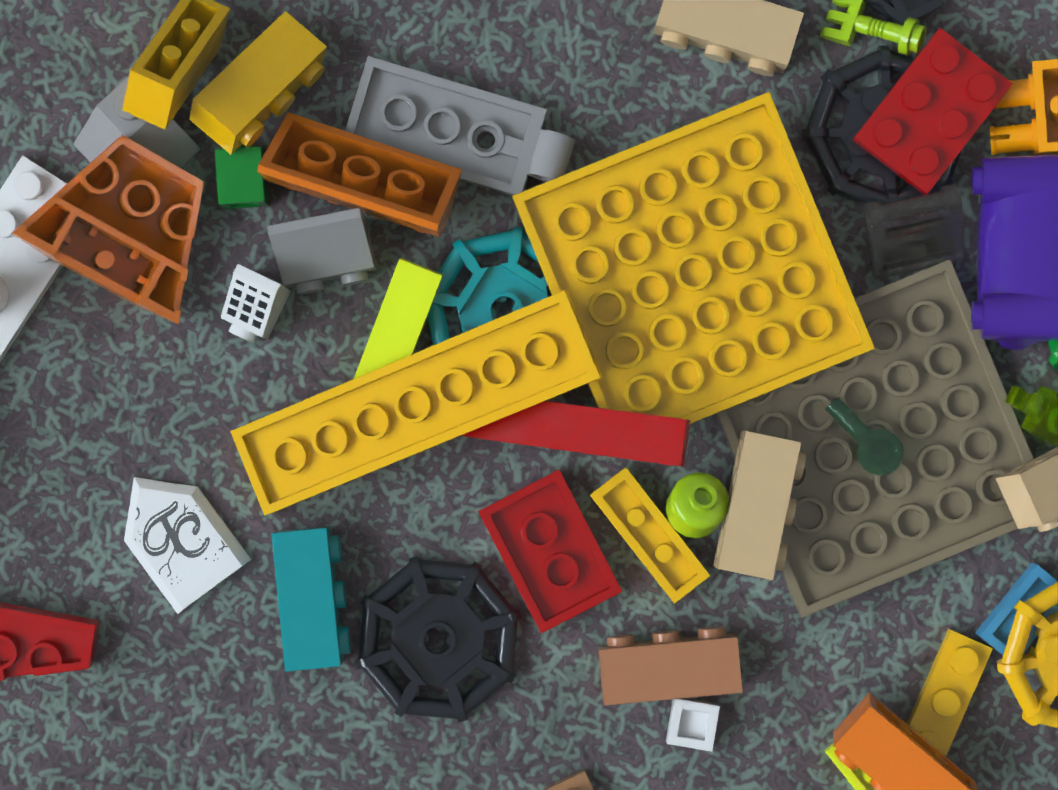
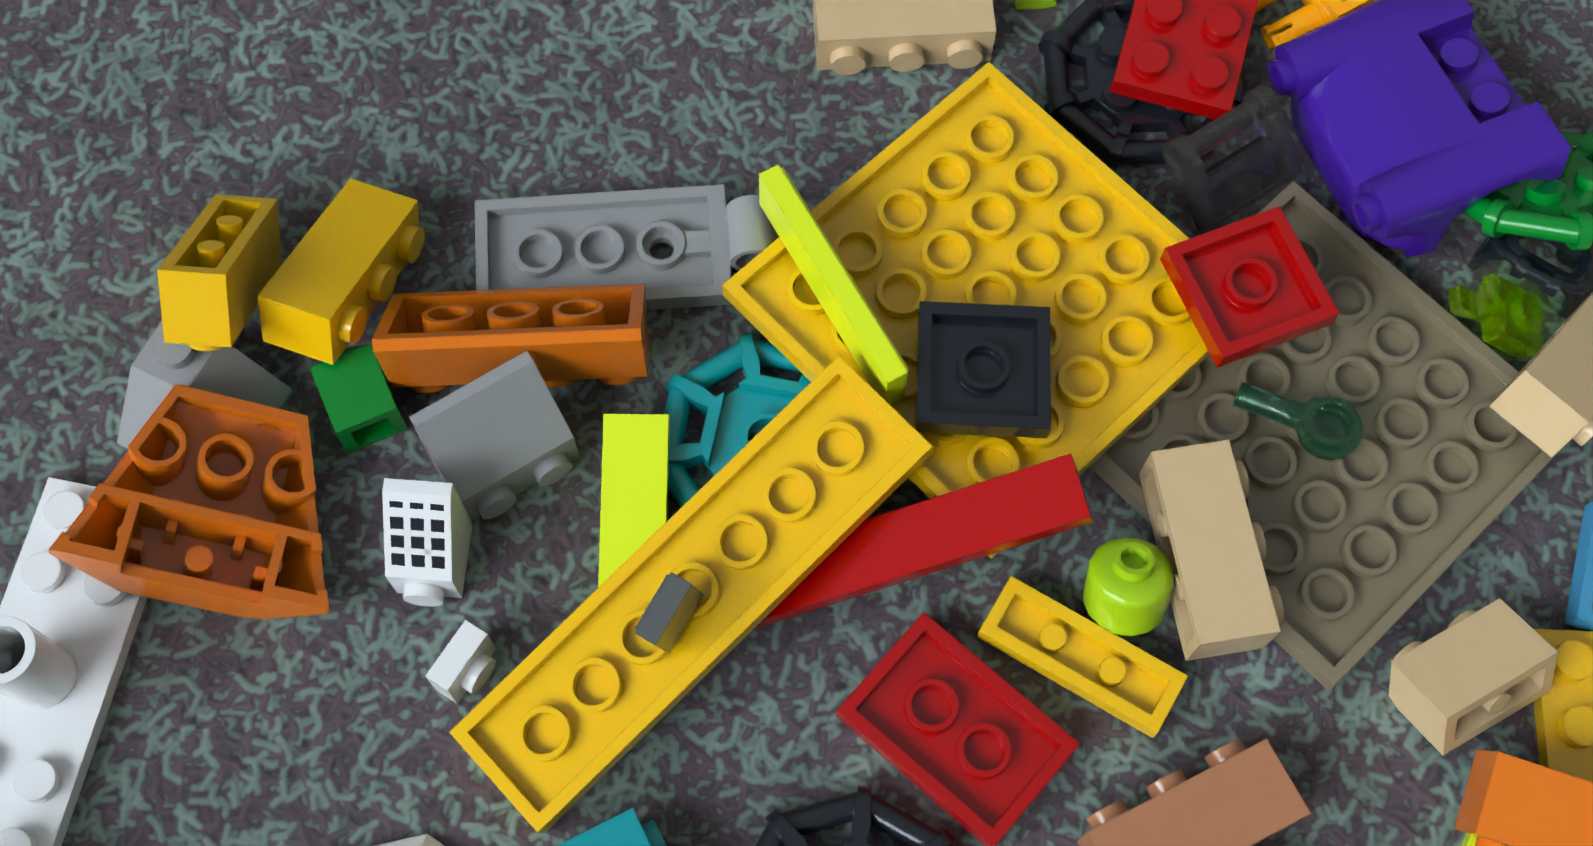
camera: 20 degrees left, 20 degrees down
(254, 390) = (463, 663): none -> white plate
(389, 420) = (669, 612): none -> dark grey tile
(583, 231) = (832, 285): none -> neon yellow tile
(660, 331) = (983, 370): none -> black plate
(867, 339) = (1248, 286): none -> red plate
(890, 645) = (1471, 675): none -> tan brick

